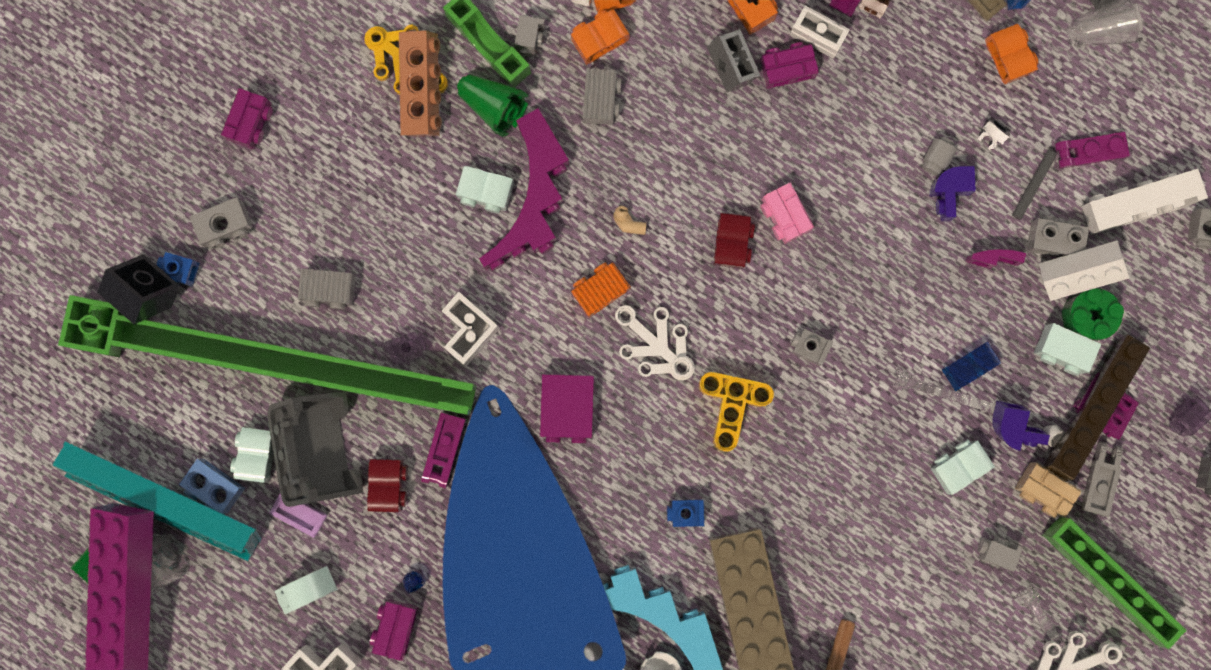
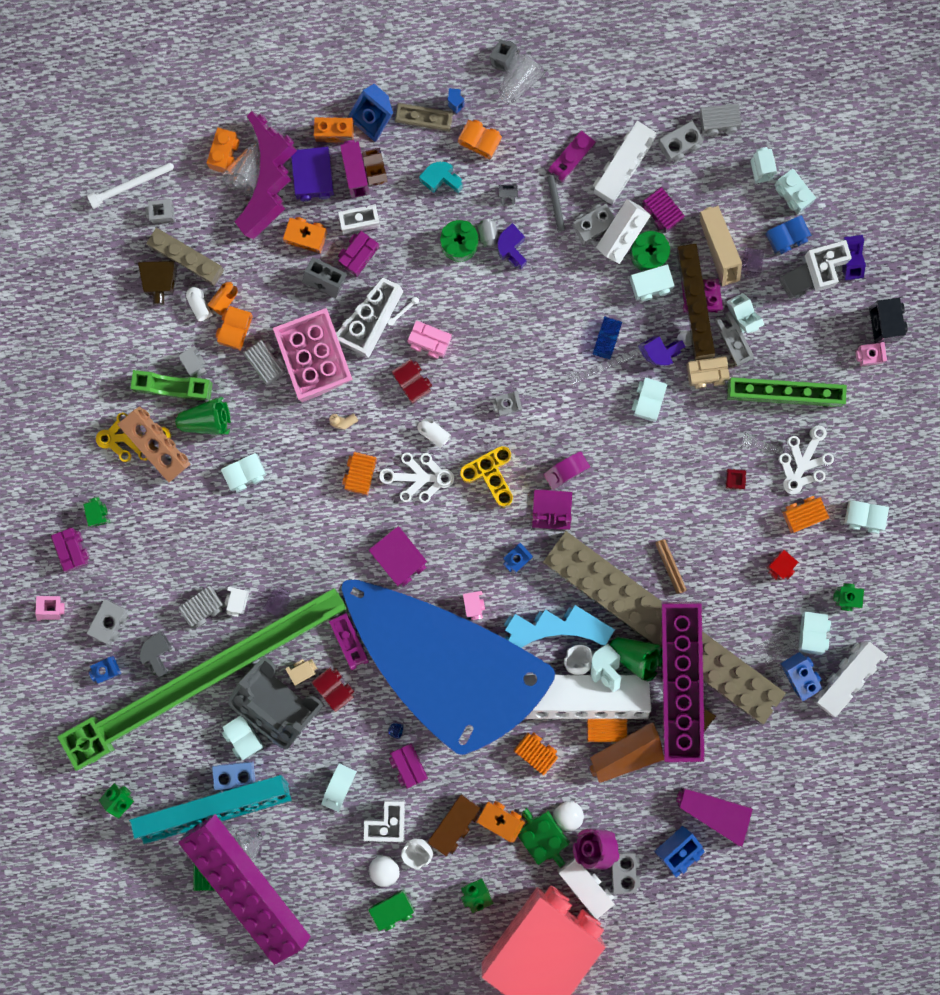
camera: 40 degrees left, 0 degrees up
(75, 409) = (116, 800): none -> green brick
(138, 289) = (94, 698): black brick -> none
(174, 151) = (43, 603): none -> bright pink brick
(238, 290) = (152, 649): none -> dark grey brick
(301, 517) = (299, 749): lavender tile -> none
(303, 104) = (96, 512): none -> green brick
(366, 312) = (236, 601): none -> white brick
(370, 440) = (302, 671): none -> tan brick
(474, 330) = (307, 556): white brick -> none
(542, 197) = (281, 448): magenta arch -> none
(601, 523) = (474, 605): none -> bright pink brick
(655, 128) = (312, 355): none -> bright pink slope
(710, 311) = (433, 432): none -> white piece
(744, 141) = (370, 318): none -> white wedge
(763, 163) = (391, 321): none -> white hinge
(764, 493) = (552, 509): none -> magenta hinge
(813, 466) = (566, 470): none -> magenta brick
(916, 134) = (450, 246): none -> green brick
(938, 53) = (438, 173): none -> teal brick
(981, 625) = (735, 479): none -> dark red tile
(990, 258) = (565, 267): magenta slope -> none
(999, 553) = (710, 430): light grey brick -> none
(1136, 463) = (744, 314): none -> light aqua brick
(1144, 284) = (662, 210): none -> magenta brick
(1172, 373) = (721, 245): none -> tan slope

